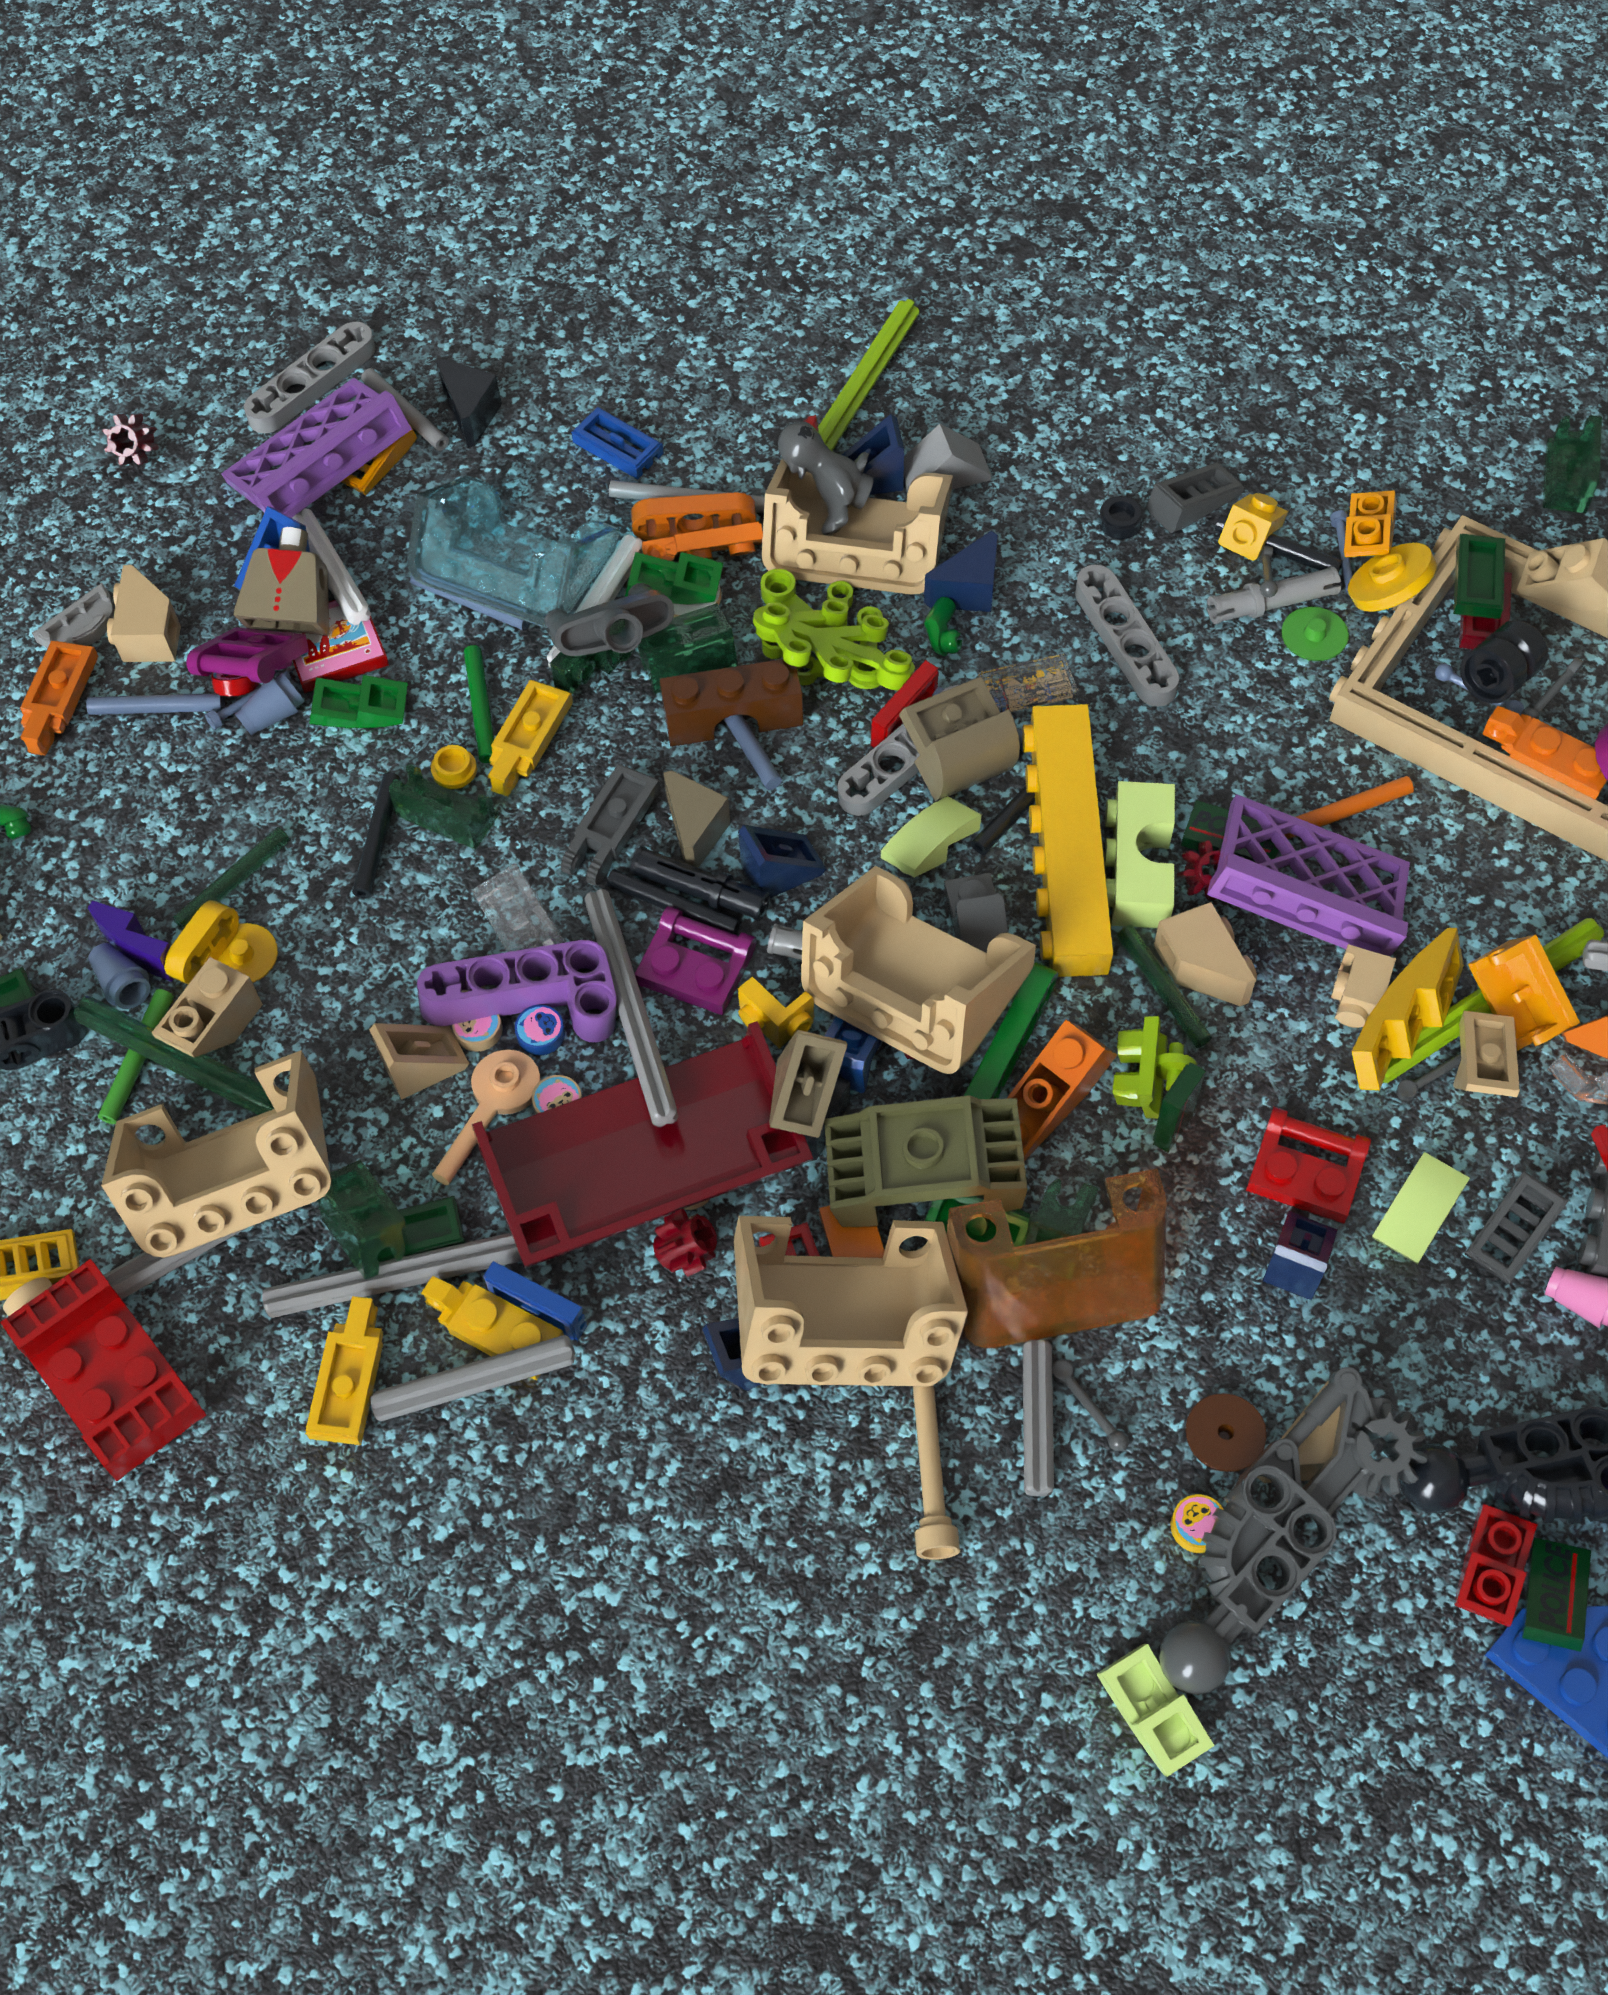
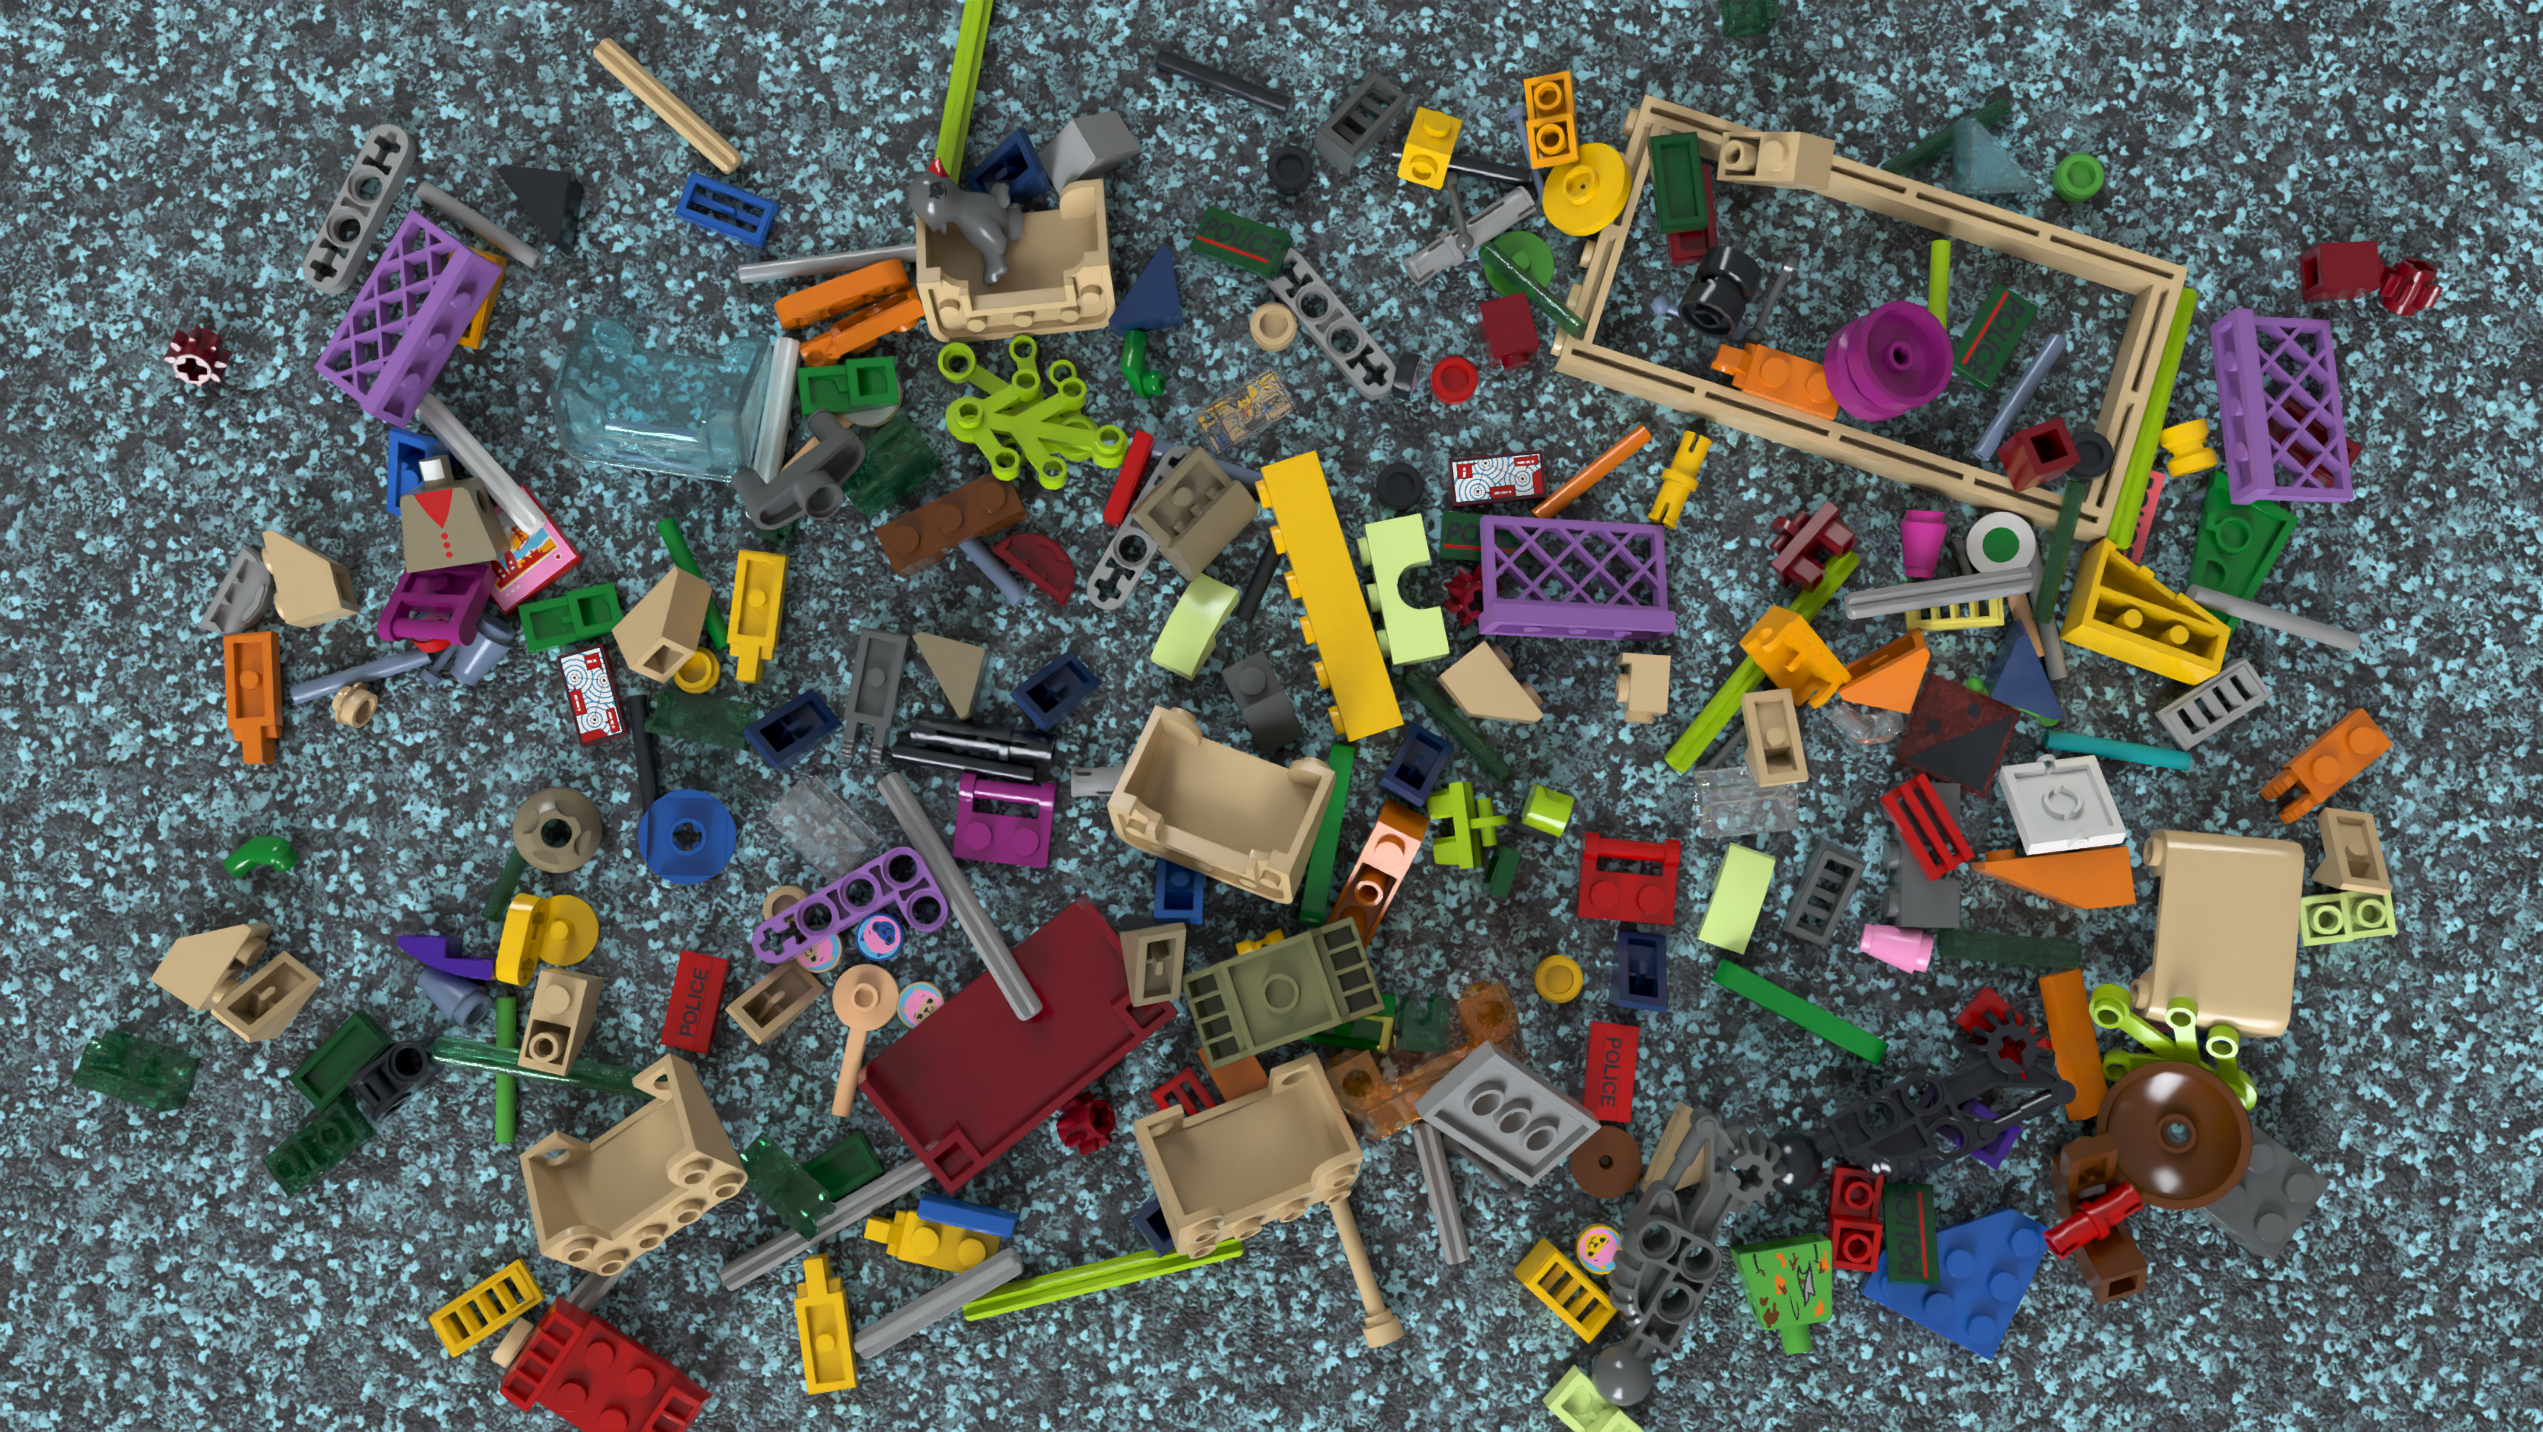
camera: 15 degrees left, 25 degrees up
(138, 722) = (354, 705): none -> tan plate
(274, 882) = (563, 804): none -> dark tan piece
(342, 1040) = (695, 1001): none -> red tile
(352, 768) = (593, 695): none -> tile
(385, 918) = (667, 816): none -> blue plate
(442, 713) = (664, 625): none -> tan slope
(522, 832) = (792, 730): none -> dark blue slope
(596, 362) = (667, 106): none -> tan axle
(654, 1403) = (1091, 1278): none -> lime axle
(774, 1019) = (1086, 867): yellow bracket -> none
(800, 758) = (1041, 562): none -> dark red tile
(1062, 553) = (1241, 243): none -> dark green tile
(1073, 627) = (1273, 327): none -> tan tile
(1079, 444) = (1222, 82): none -> black piece
(1109, 1006) = (1415, 766): none -> dark blue slope
(1136, 1568) = (1543, 1269): none -> yellow slope
(1145, 1288) = (1483, 1124): none -> light grey plate
(1159, 769) = (1399, 487): none -> black tile
(1188, 685) = (1407, 376): none -> black tile
(1214, 1241) = (1558, 979): none -> yellow tile
(1232, 704) = (1454, 380): none -> red tile
(1235, 1071) = (1543, 813): none -> lime leg
(1249, 1344) = (1610, 1070): none -> red tile
(1264, 785) = (1497, 479): none -> tile
(1292, 670) = (1508, 331): none -> dark red brick
(1324, 640) = (1533, 289): none -> clear green bar
(1404, 1613) = (1787, 1285): none -> bright green torso
(1412, 1001) = (1696, 689): yellow slope -> none
(1434, 826) = (1679, 479): none -> yellow pin
(1449, 1116) = (1735, 805): none -> clear hinge
(1471, 1334) = (1800, 1012): none -> green beam
(1549, 905) = (1802, 540): none -> dark red hips

